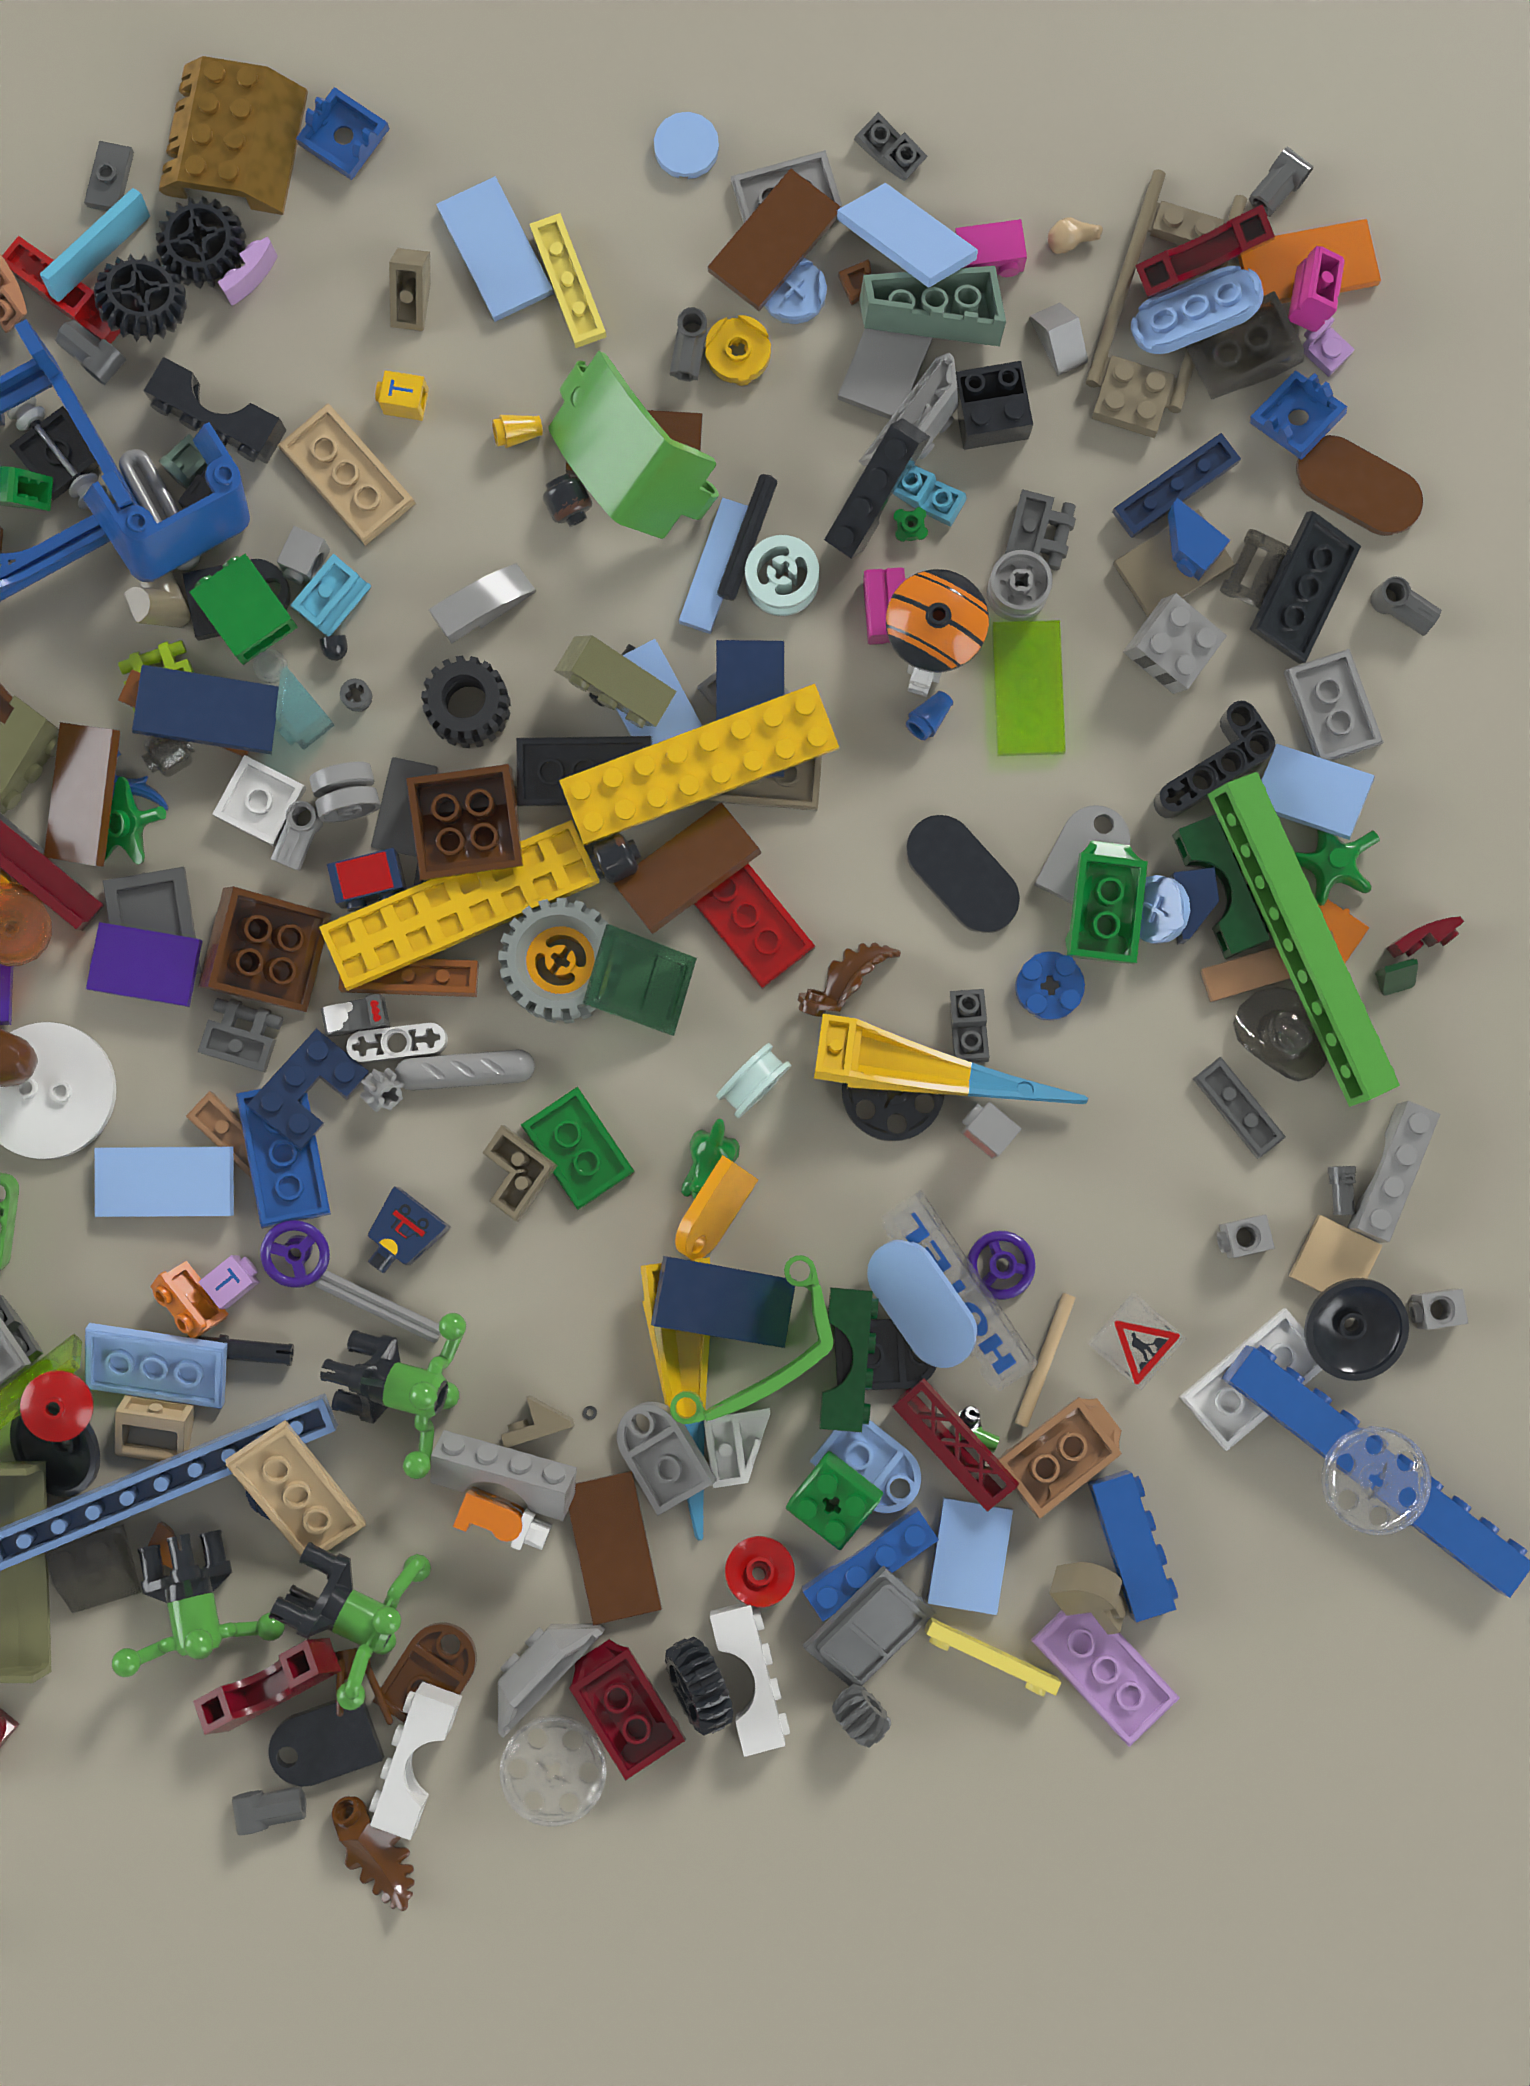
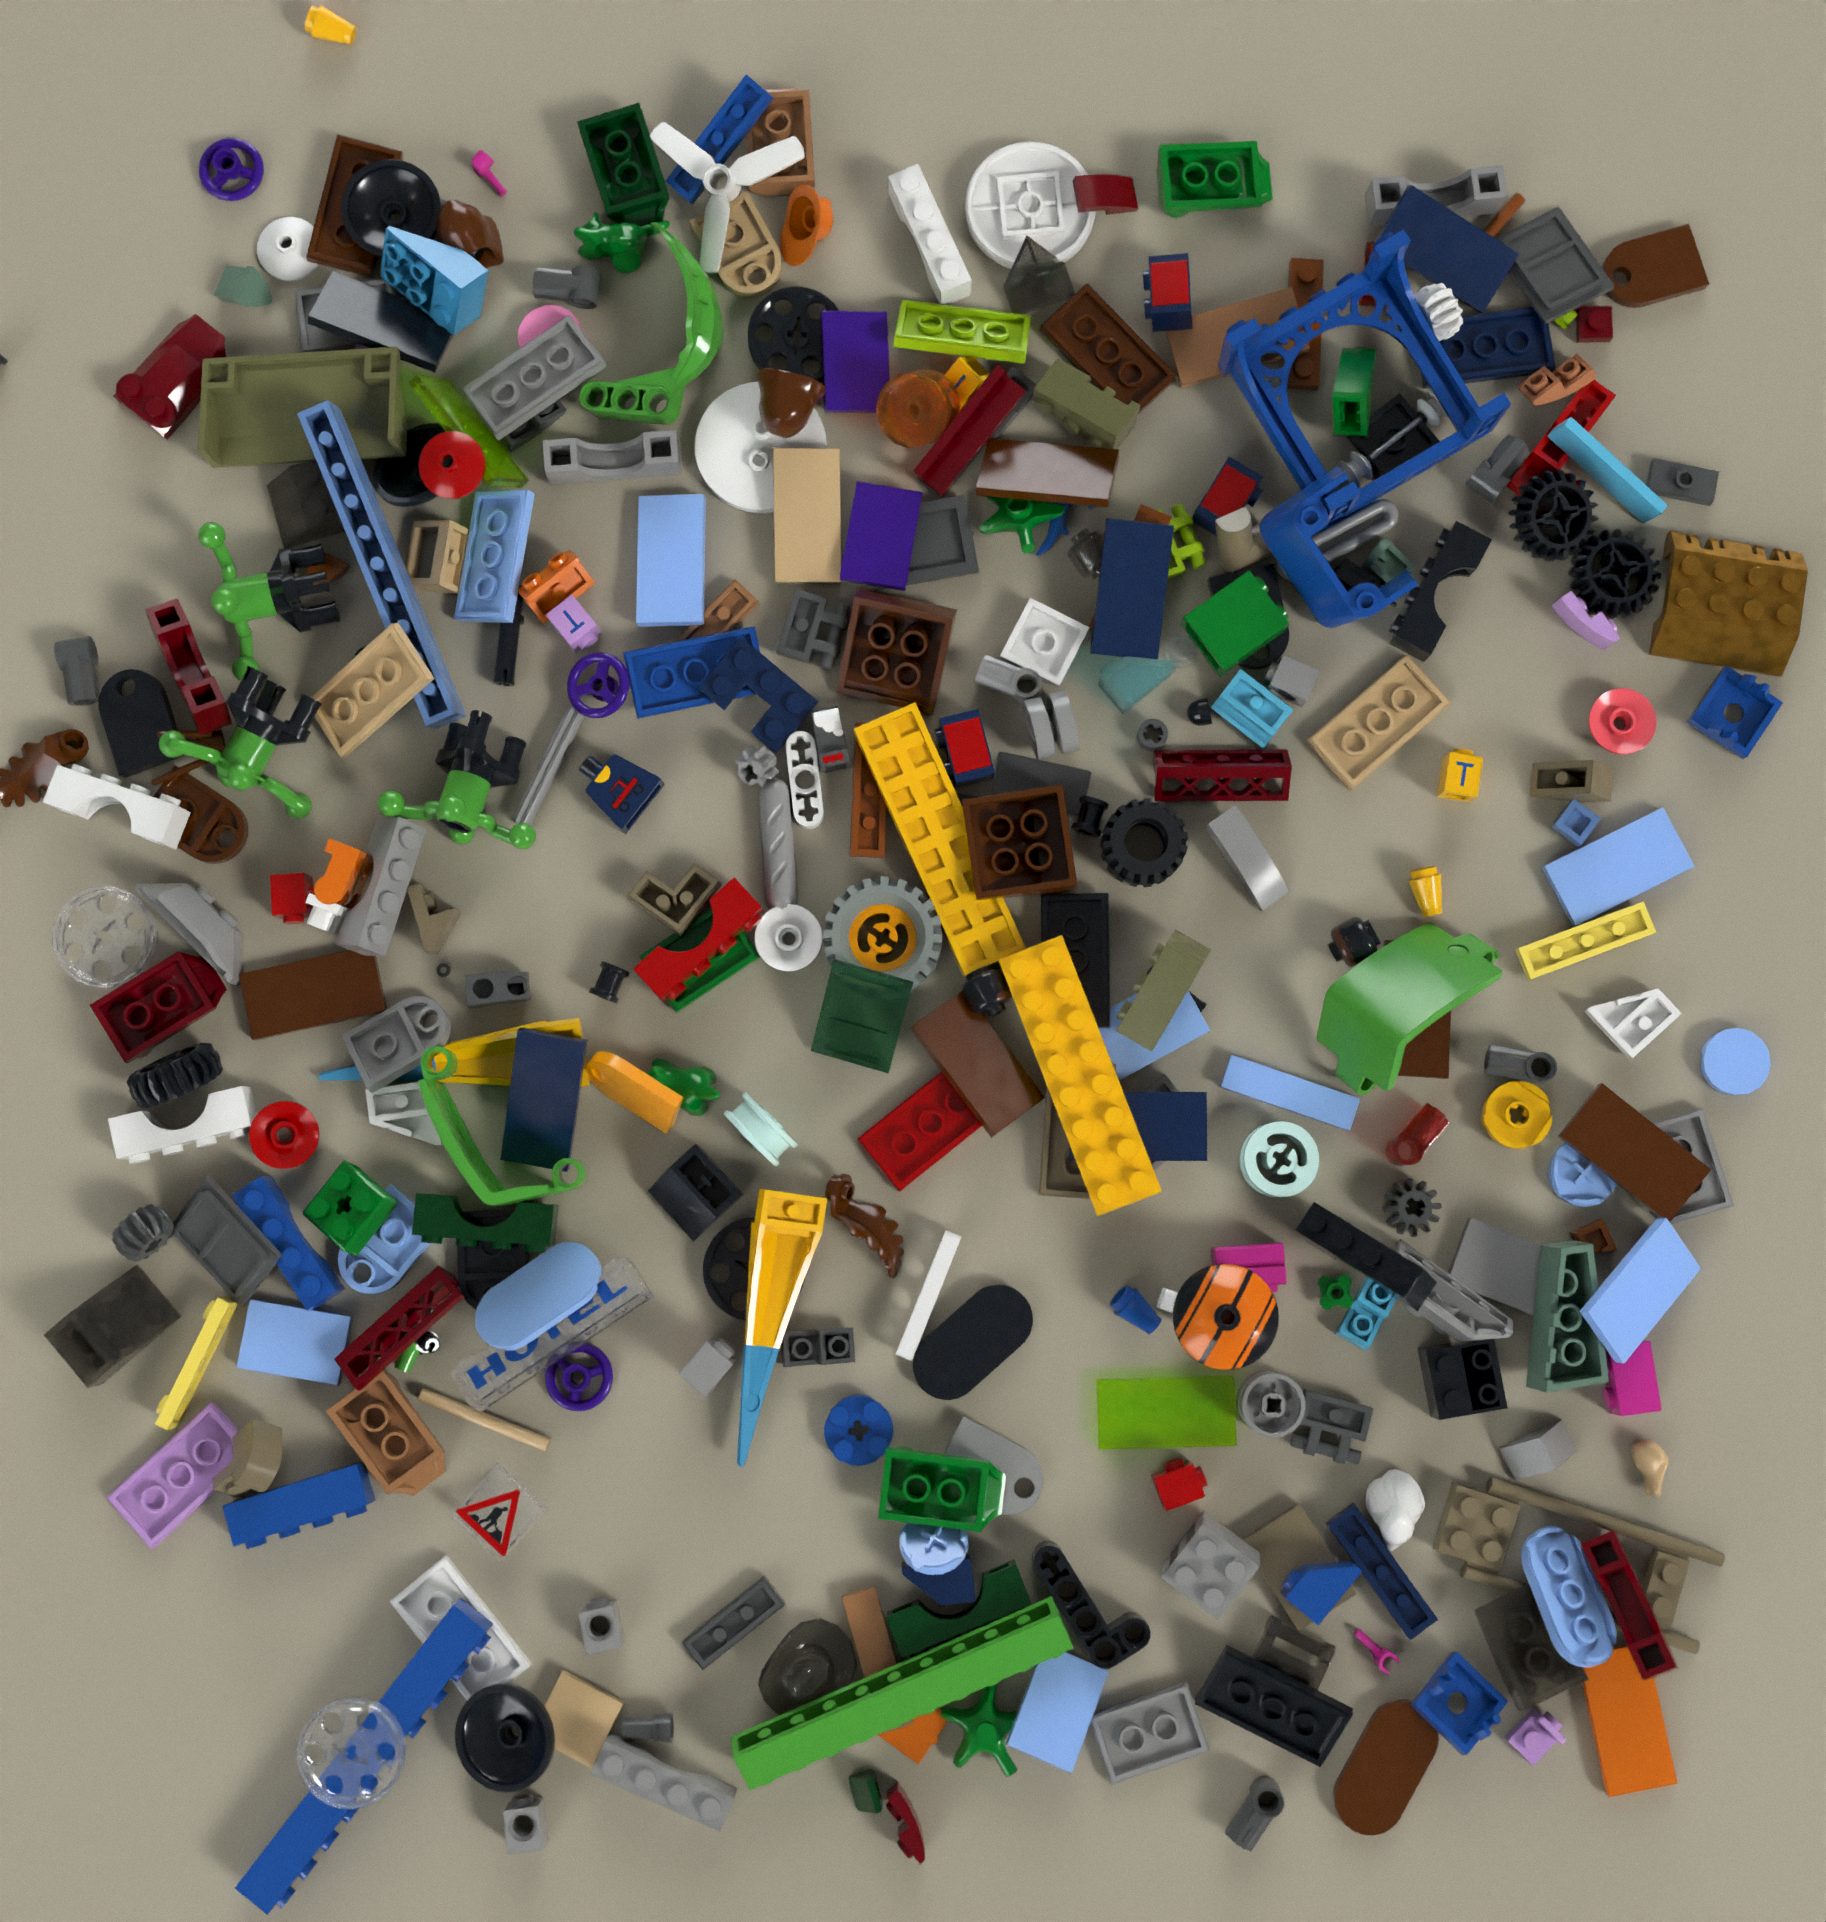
camera: 90 degrees right, 0 degrees up
(53, 1210) = (580, 461): none -> light grey arch
(109, 615) = (1230, 491): none -> red brick
(120, 1041) = (807, 515): none -> tan tile
(345, 226) = (1636, 715): none -> coral dish
(391, 623) = (1222, 764): none -> dark red fence
(438, 755) = (1089, 816): none -> black bush
(450, 286) = (1575, 822): none -> medium blue plate
(513, 1570) = (289, 896): none -> red brick
(532, 1112) = (669, 970): none -> red arch
(555, 1039) = (780, 922): none -> white dish
(603, 1239) = (609, 982): none -> black bush
(609, 1354) = (496, 988): none -> dark grey leg
(645, 236) = (1634, 1019): none -> white wing
(747, 536) = (1318, 1124): black axle -> none
(758, 443) = (1418, 1134): none -> clear red piece
(817, 1147) = (695, 1192): none -> black slope
(828, 438) = (1424, 1210): none -> dark grey gear
(889, 148) = (1739, 1273): dark grey slope -> none
(917, 916) = (928, 1295): none -> white beam
(956, 1744) = (112, 1327): none -> clear smoke slope
(1097, 674) = (1179, 1483): none -> red brick
(1114, 471) = (1395, 1506): none -> white hair
(1254, 489) = (1379, 1653): none -> dark pink hand
(1284, 176) = (1720, 1694): dark grey piece -> none
(1316, 289) = (1592, 1725): dark pink brick -> none

